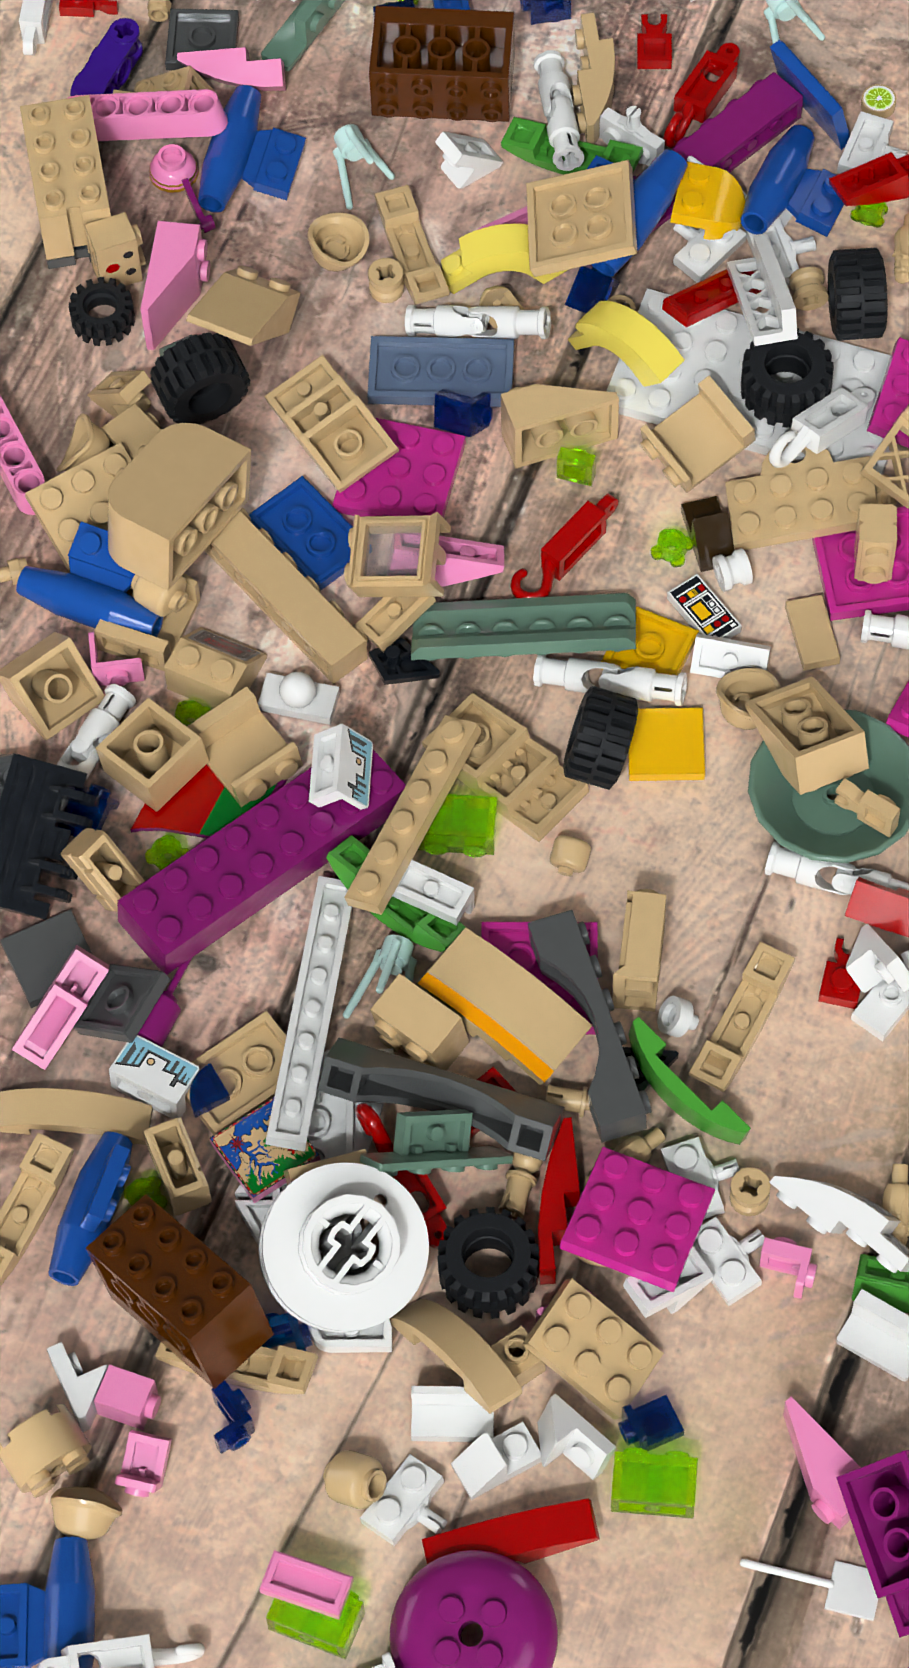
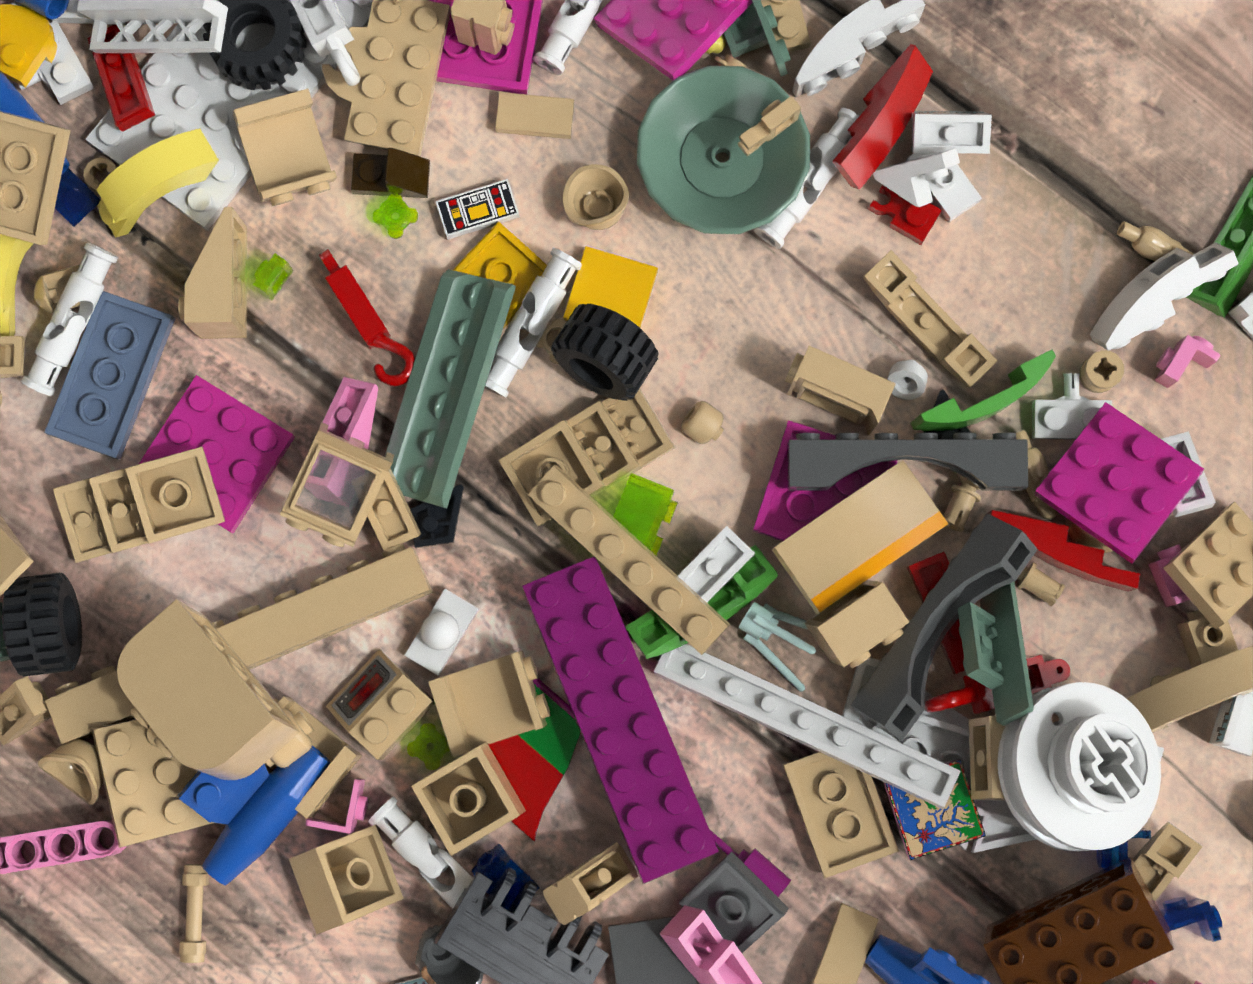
camera: 75 degrees left, 20 degrees up
(148, 1186) = (946, 928): clear neon green plate -> none
(153, 1076) = (821, 892): white panel -> none
(163, 846) = (565, 811): clear neon green plate -> none
(177, 1166) = (927, 899): tan brick -> none
(207, 1091) = (857, 848): clear blue tile -> none
(307, 530) = (252, 566): blue tile -> none
(341, 767) = (567, 617): white panel -> none
(462, 413) = (172, 370): clear blue bracket -> none
(488, 1232) = (1140, 624): black tyre -> none
(720, 656) = (541, 202): white plate -> none
(729, 1260) = (1164, 413): white plate -> none
(732, 569) = (444, 165): white wheel -> none
(809, 735) = (672, 153): tan slope -> none

